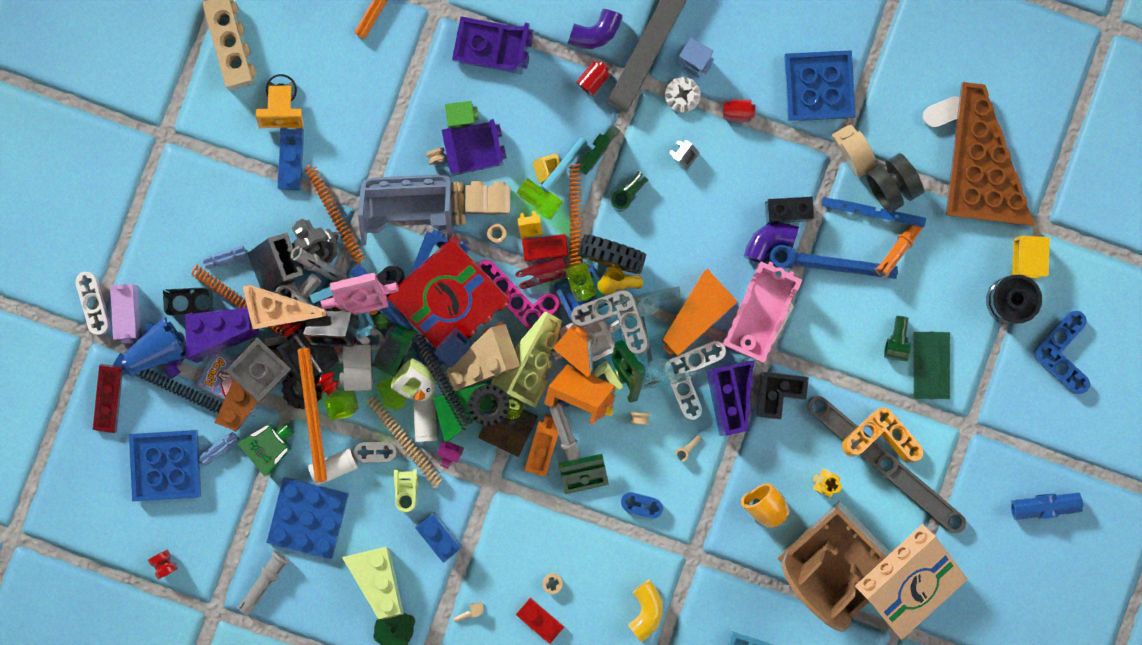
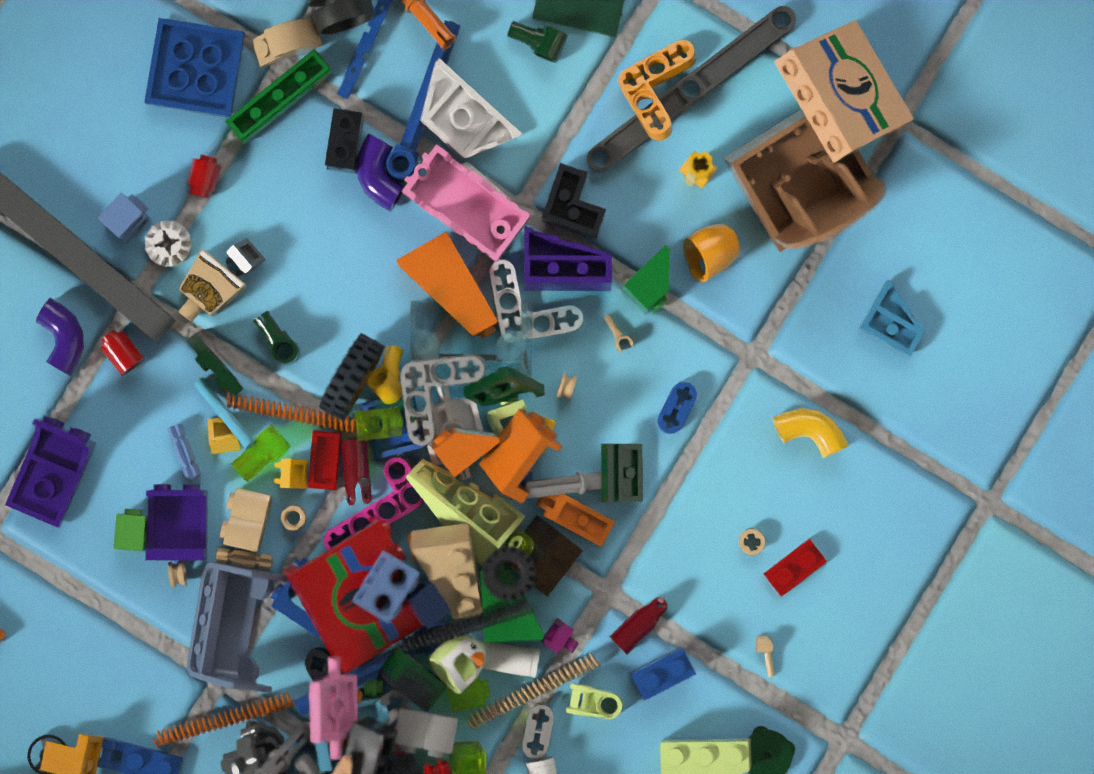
camera: 80 degrees left, 0 degrees up
(460, 308) = (379, 583): none -> medium blue brick
(470, 511) = (638, 625): none -> dark red piece
(529, 141) = (184, 451): none -> medium blue axle
(656, 132) = (208, 287): none -> torso
(732, 465) = (650, 283): none -> green slope
(812, 153) = (279, 96): none -> green brick
(828, 295) = (462, 115): none -> white wing

